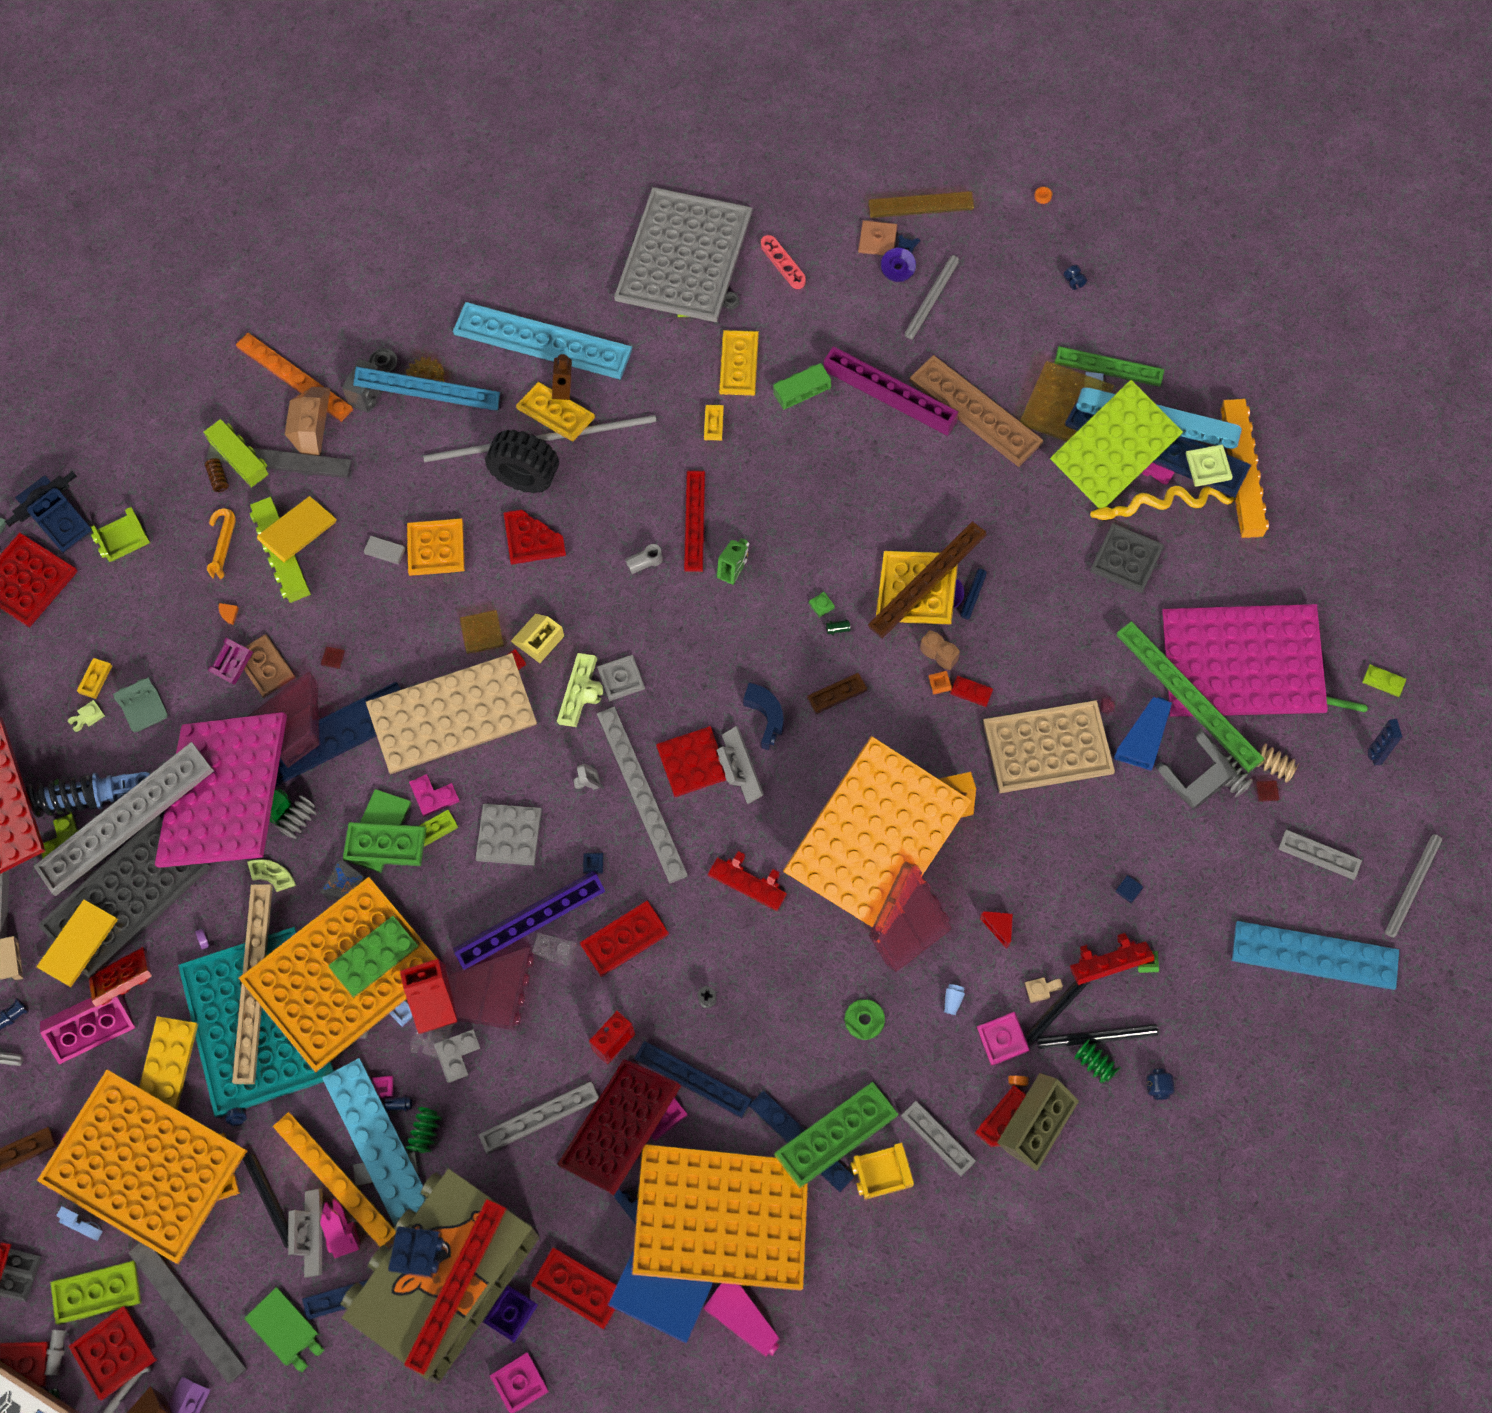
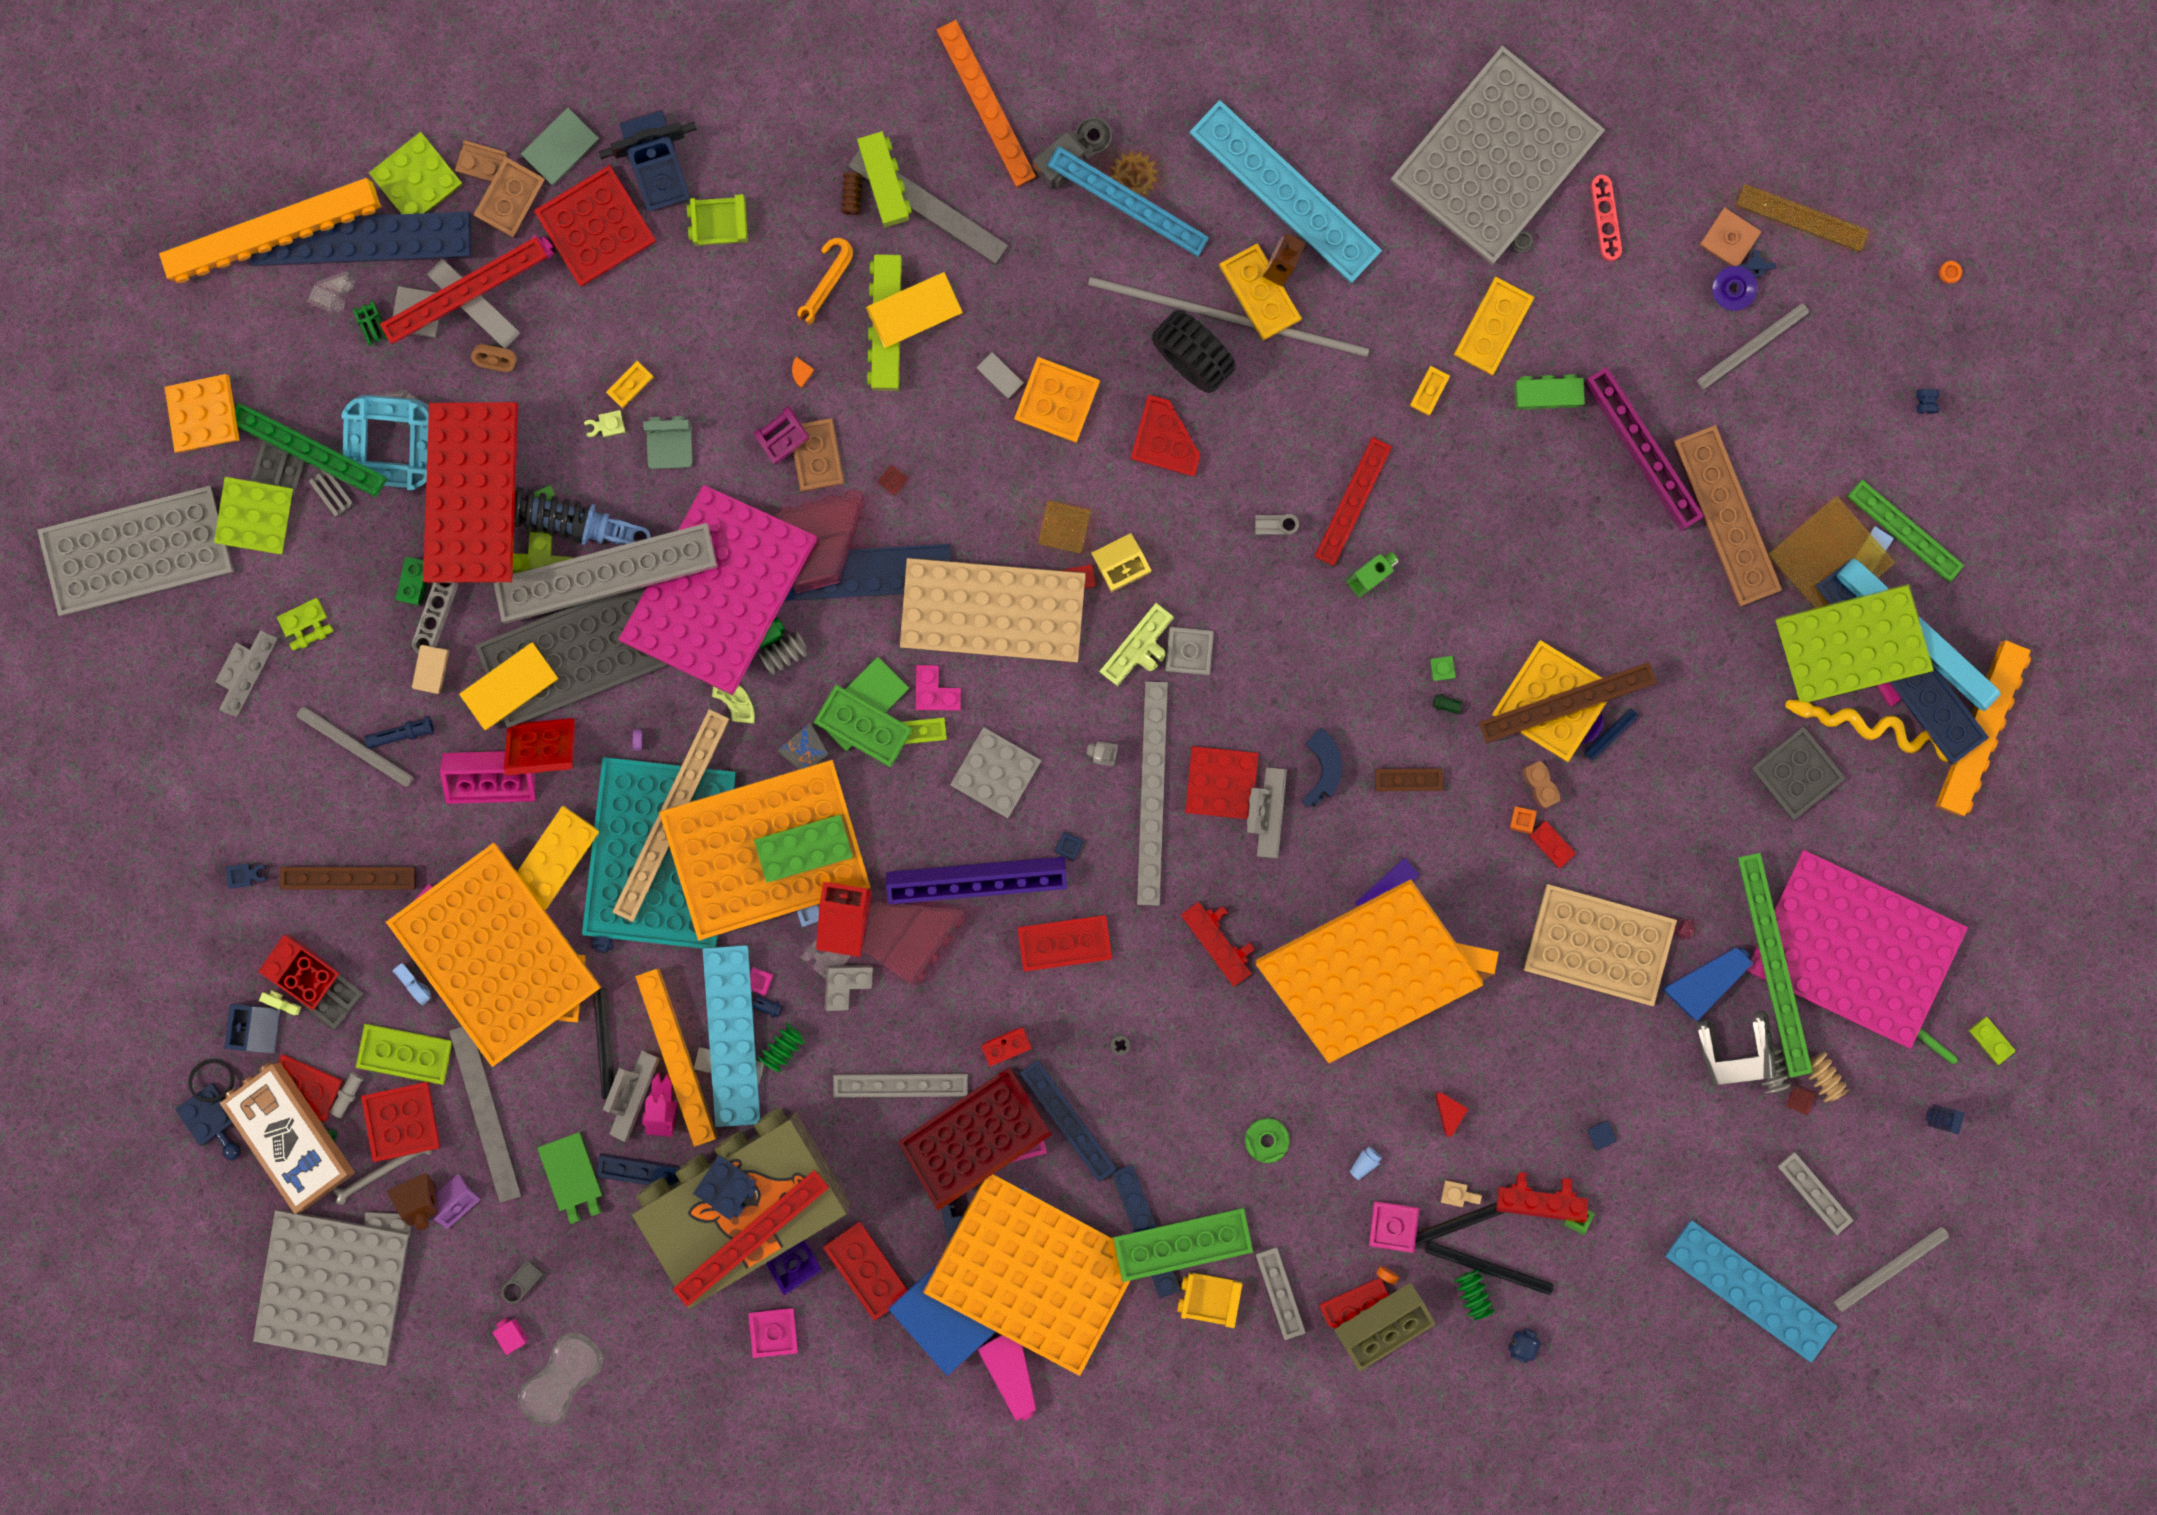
camera: 20 degrees right, 20 degrees up
(307, 420) = (979, 172): medium nougat wedge -> none
(555, 949) = (989, 923): clear slope -> none
(908, 919) = (1359, 1067): clear pink slope -> none
(1208, 465) = (1941, 718): yellowish green plate -> none

